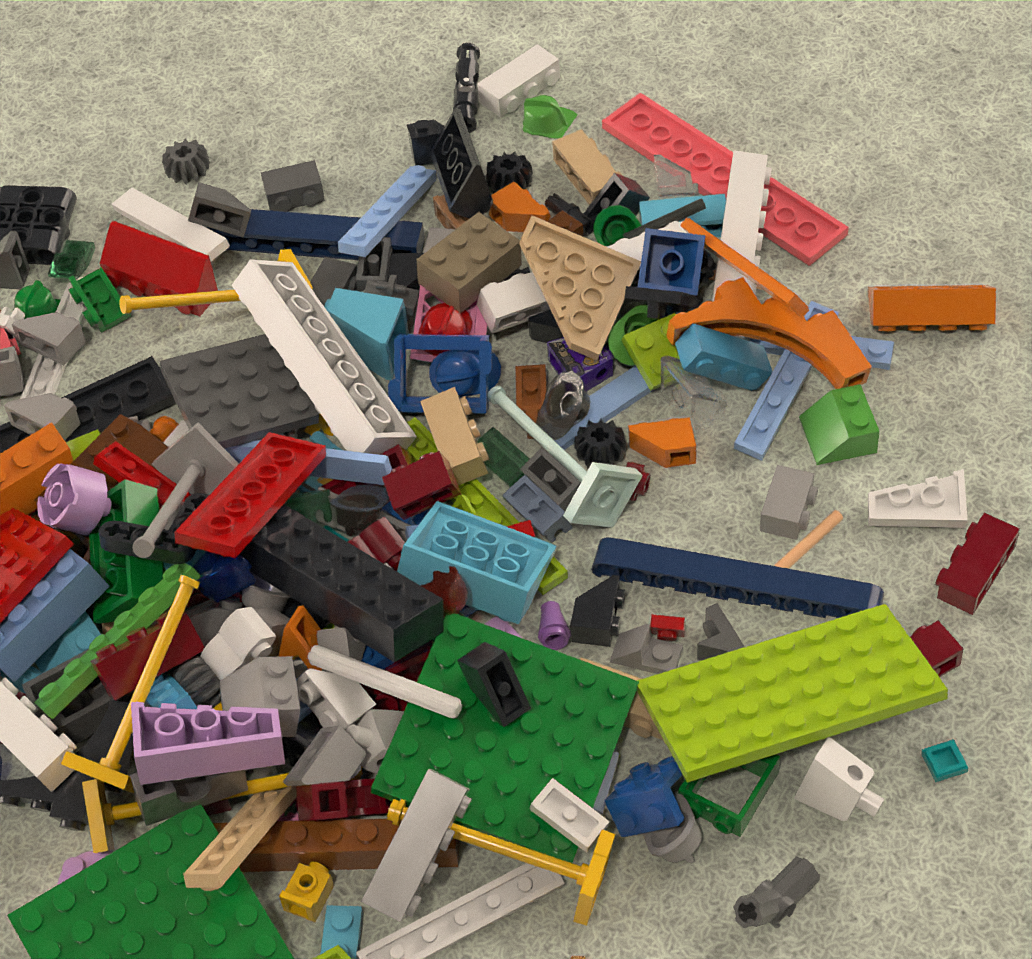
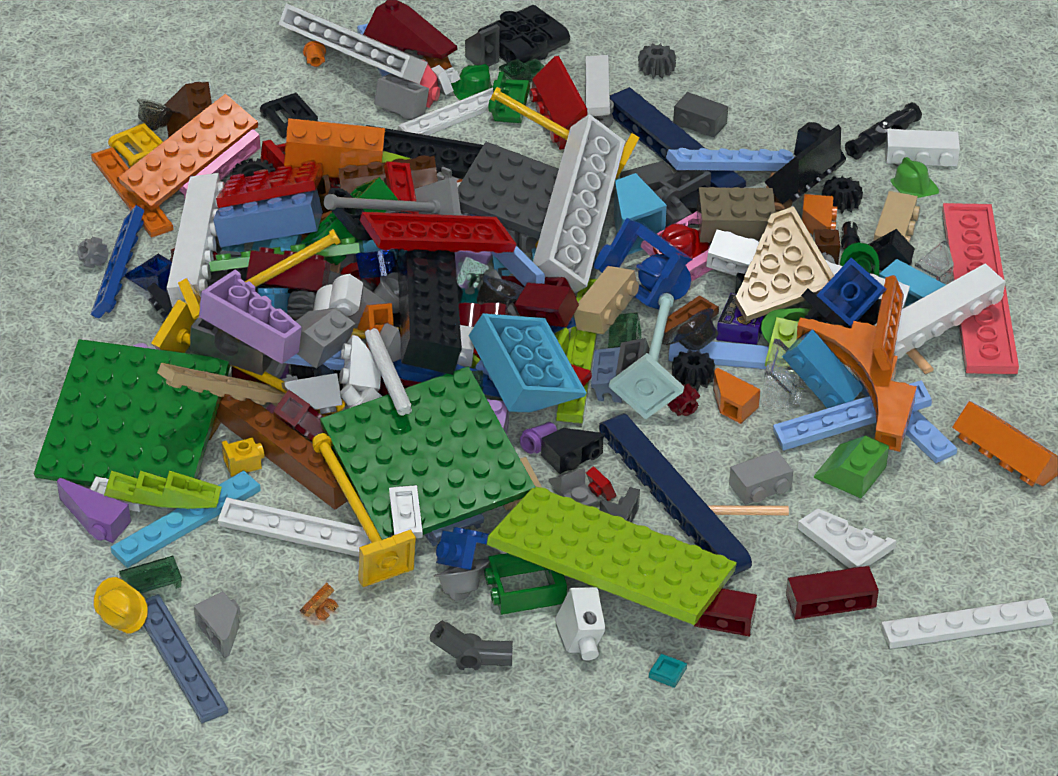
camera: 40 degrees right, 10 degrees down
(38, 411) = (401, 135): light grey slope -> none
(51, 336) = (459, 99): light grey slope -> none
(73, 499) = (348, 171): lavender brick -> none
(219, 210) = (626, 89): dark grey slope -> none
(416, 846) = (305, 462): light grey wedge -> none
(450, 588) = (477, 358): clear red hair -> none
(494, 682) = (442, 416): black slope -> none
(664, 220) = (905, 279): pearl dark grey bar -> none

